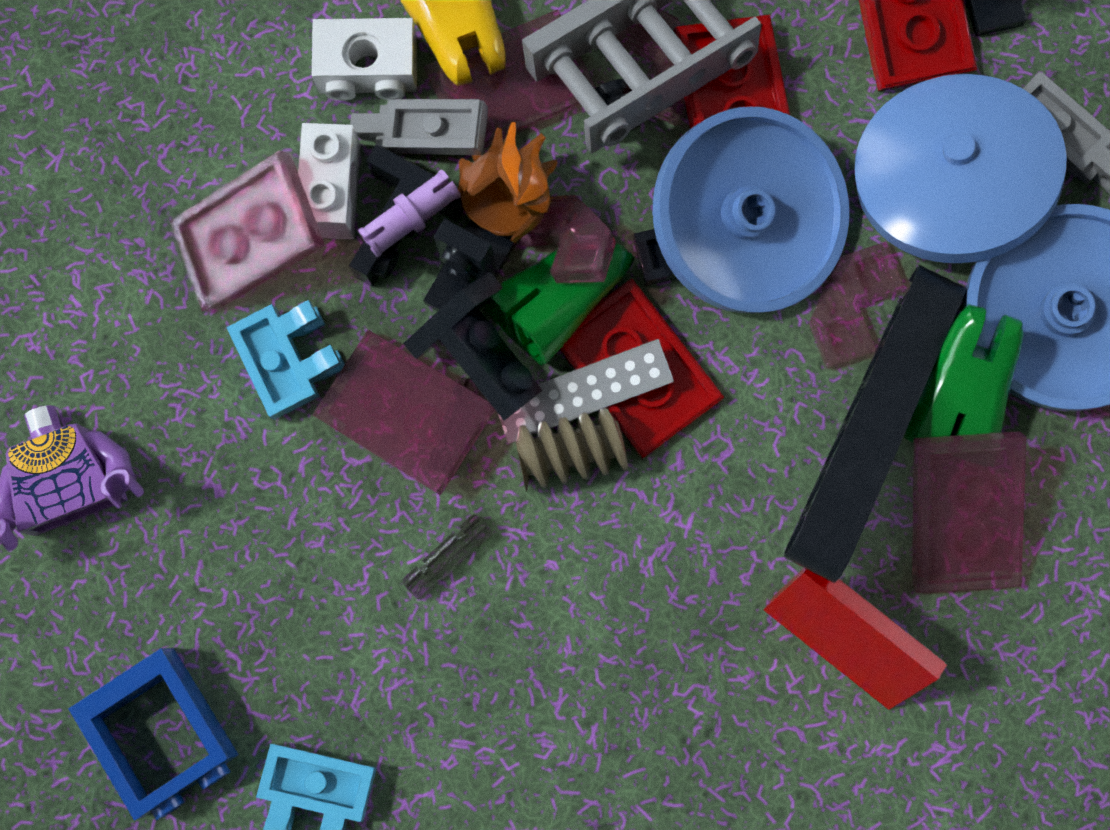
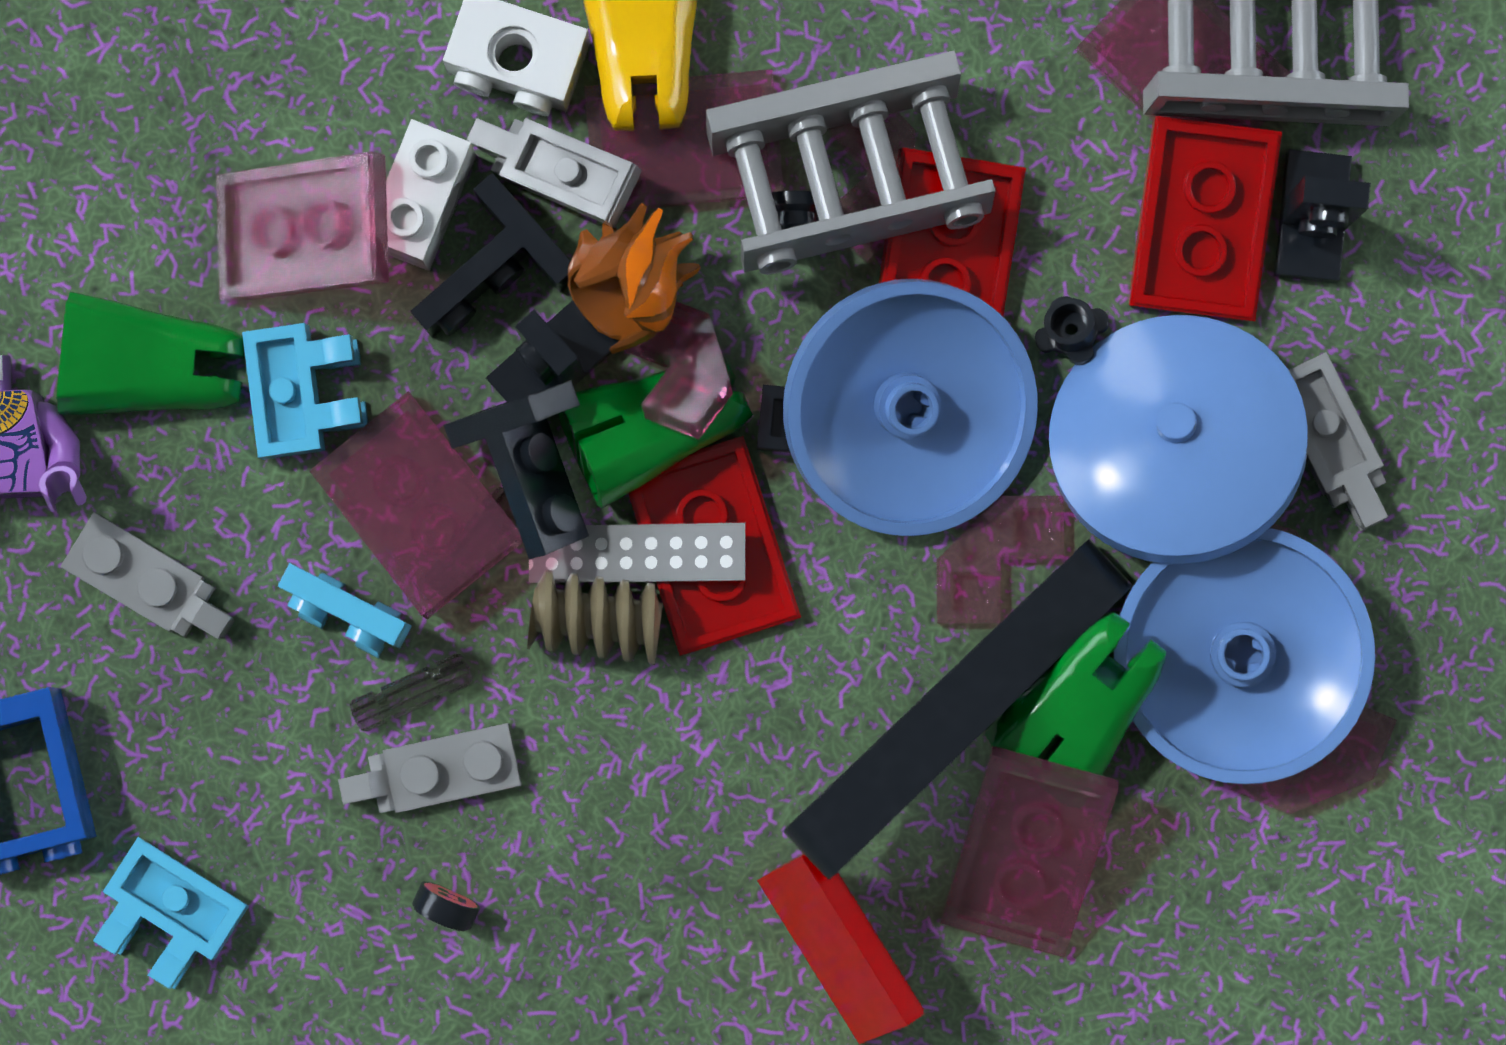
camera: 15 degrees right, 5 degrees up
(154, 375) = (139, 360): none -> green piece
(212, 541) = (144, 579): none -> light grey hinge
(350, 505) = (323, 594): none -> medium azure plate
(409, 213) = (501, 275): lavender pin -> none
(487, 610) = (437, 771): none -> light grey hinge
(531, 714) = (445, 907): none -> black tile
(846, 107) = (1066, 313): none -> black plate

